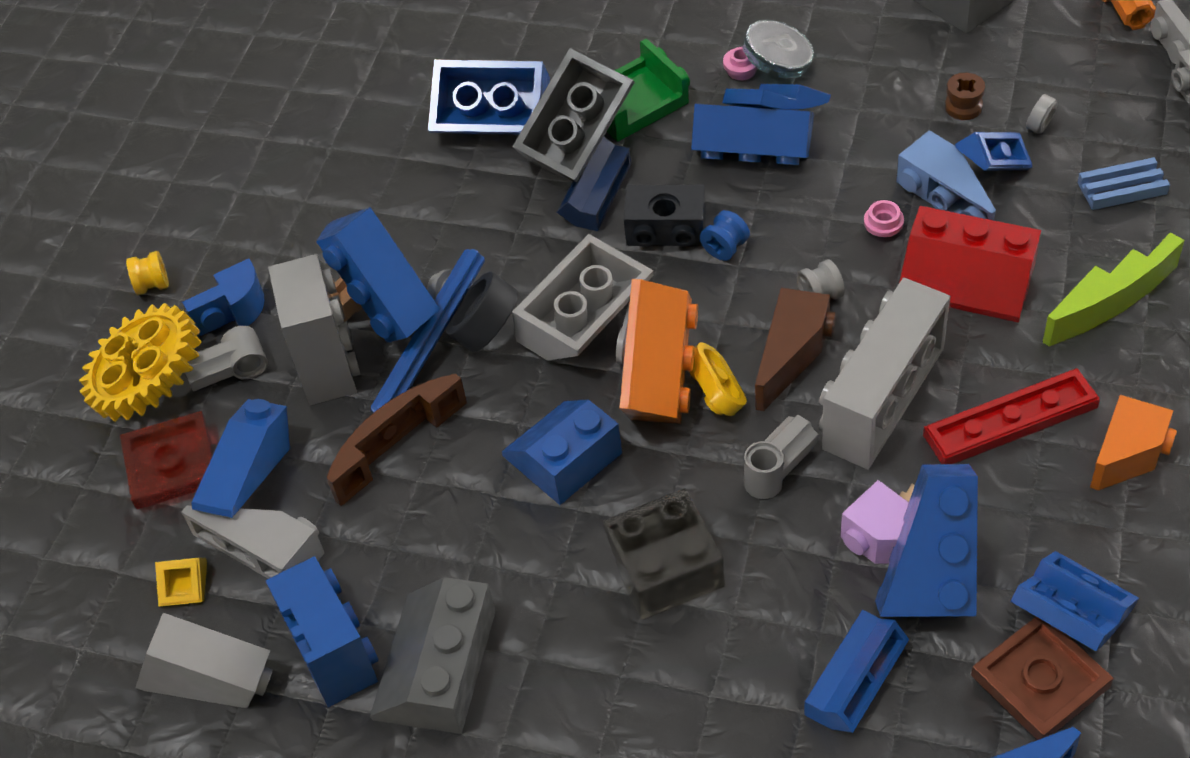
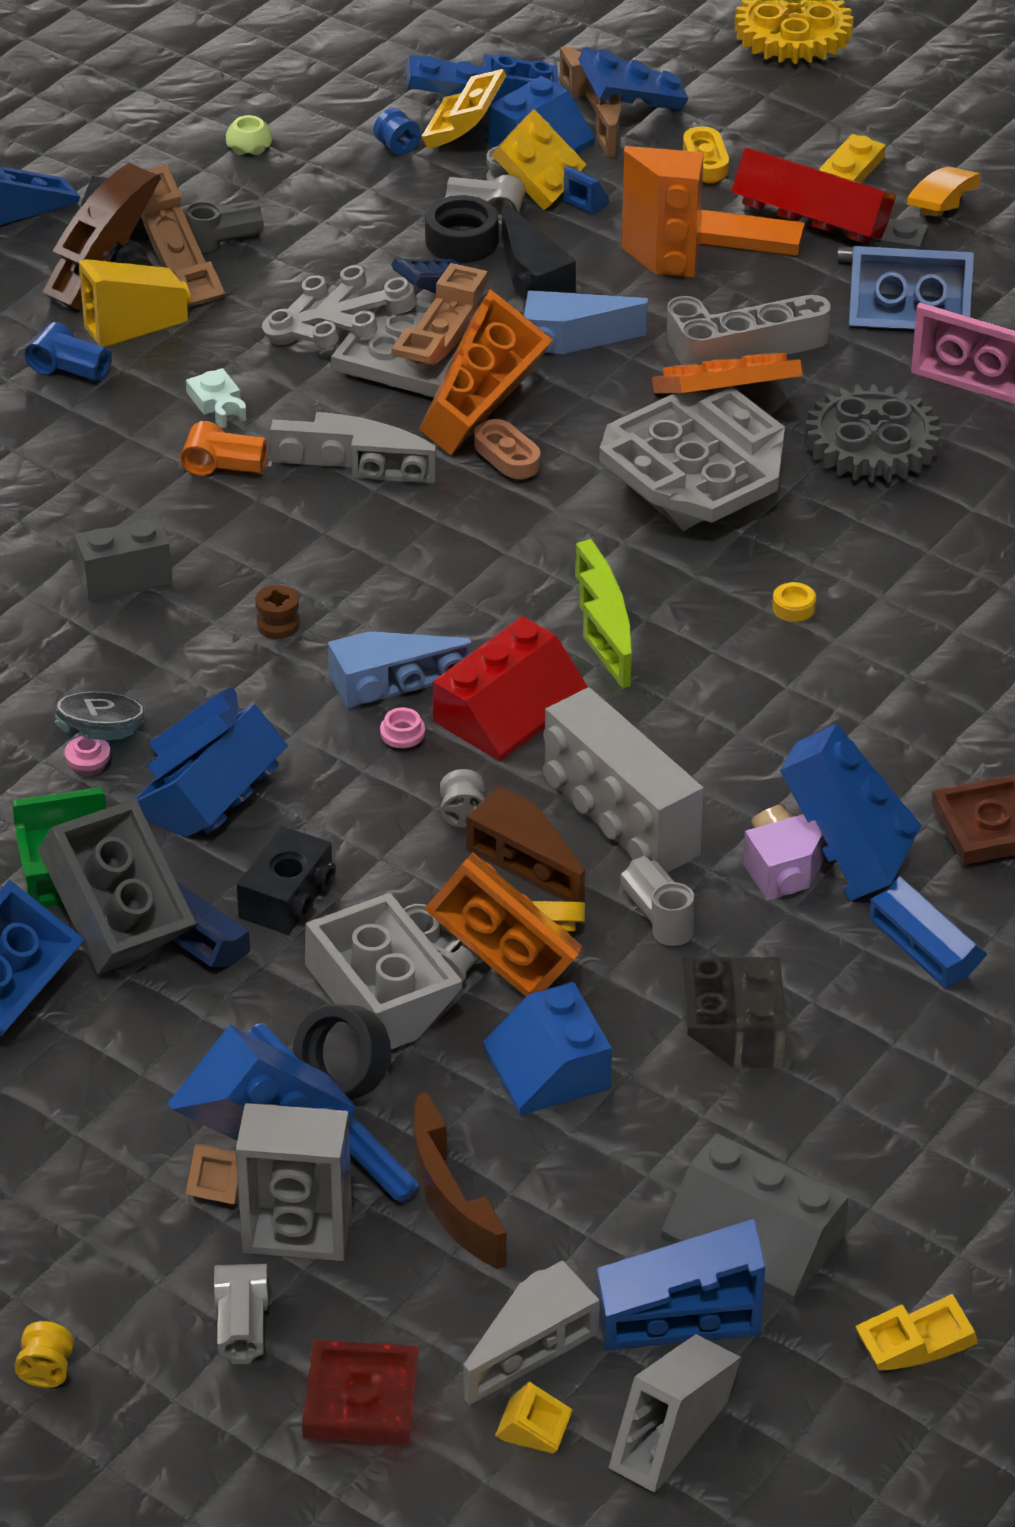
camera: 75 degrees left, 10 degrees down
(140, 362) = (190, 1422): yellow gear -> none
(234, 298) = (149, 1277): blue brick -> none
(244, 457) = (419, 1300): blue slope -> none
(724, 236) = (350, 845): blue wheel -> none
(996, 150) = (378, 614): blue slope -> none
(1011, 417) = (703, 734): red tile -> none
(1042, 114) = (346, 570): light grey tile -> none
(1075, 600) = (932, 767): blue slope -> none
(1121, 178) = (474, 539): medium blue tile -> none
(1133, 442) = (781, 670): orange slope -> none

